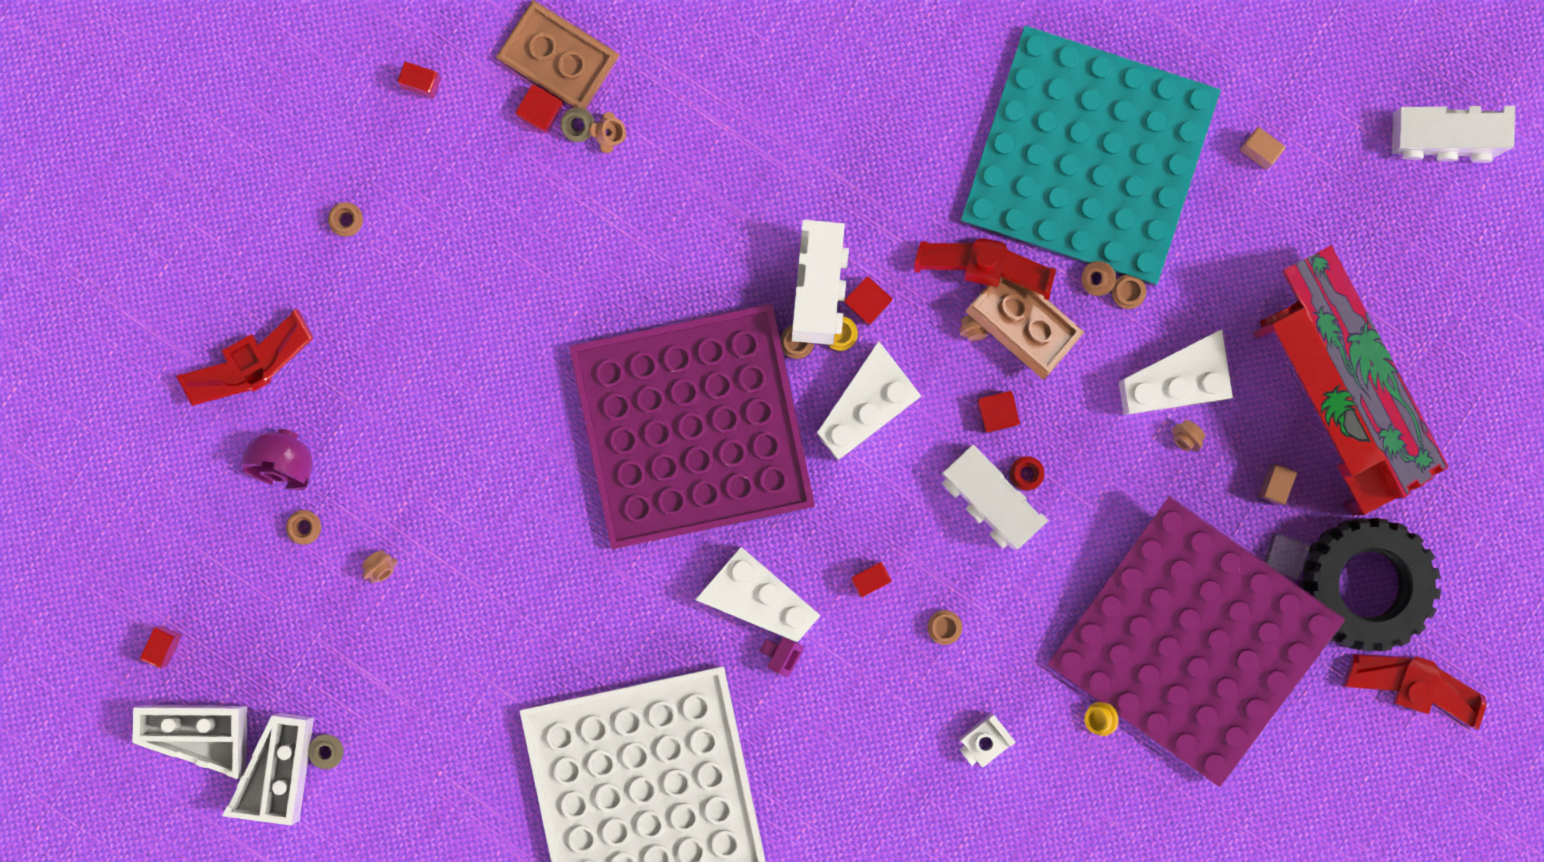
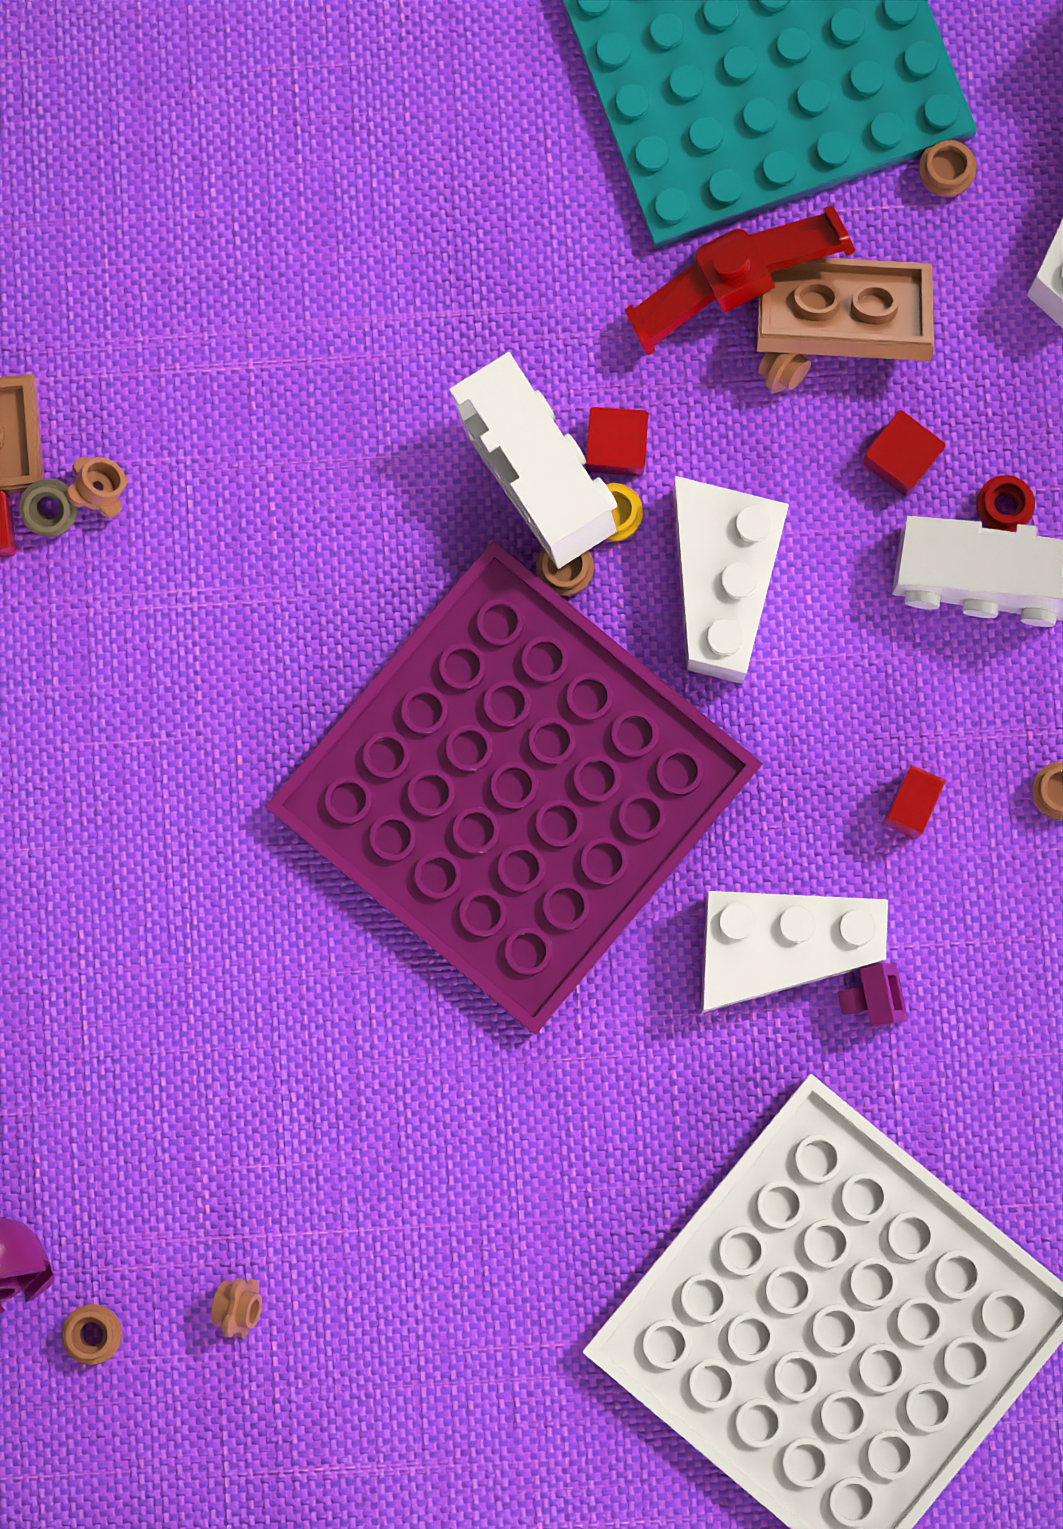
camera: 35 degrees left, 5 degrees down
(1108, 278) = (912, 179): nougat plate -> none

